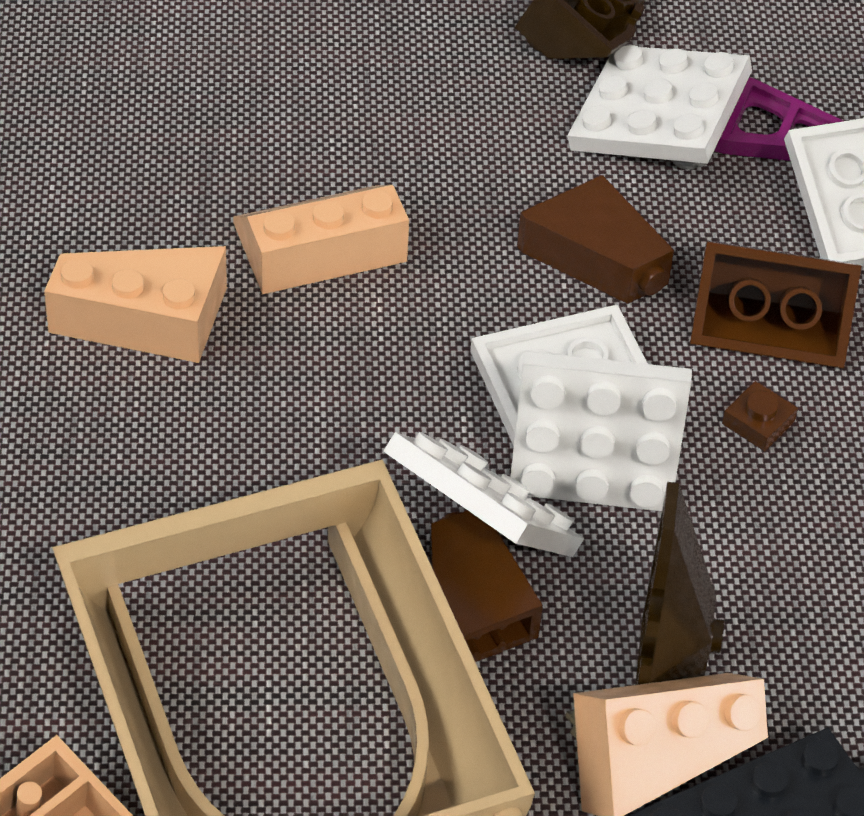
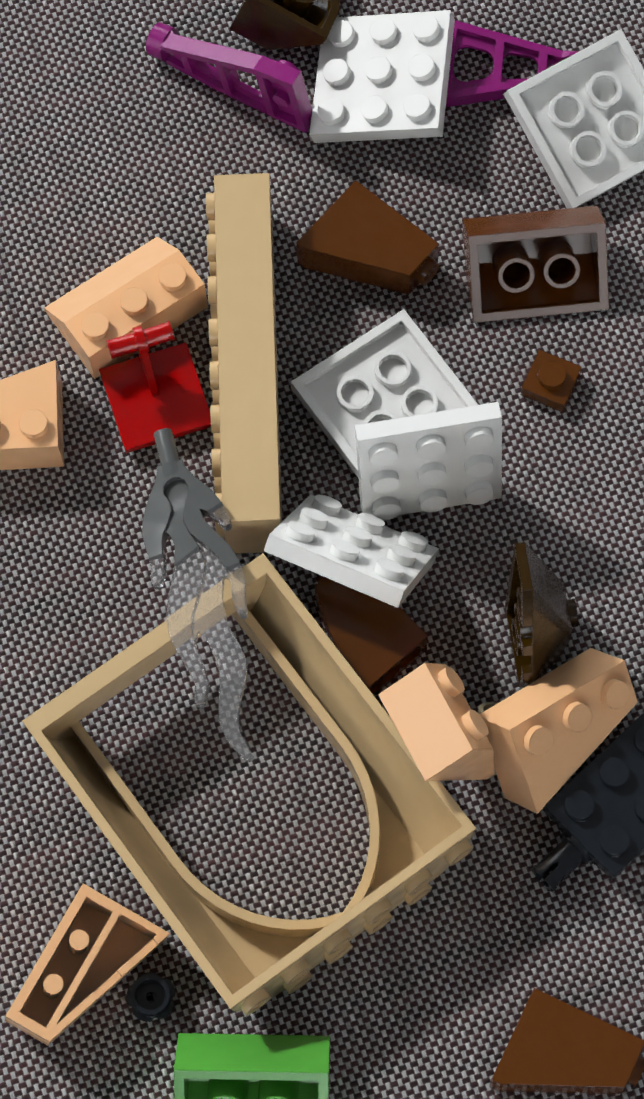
camera: 10 degrees left, 20 degrees up
(296, 469) = (197, 583): none -> clear piece
(321, 317) = (153, 389): none -> red plate
(429, 299) = (244, 359): none -> tan brick
(529, 677) = (439, 725): none -> light nougat slope
(550, 68) = (280, 82): none -> magenta plate

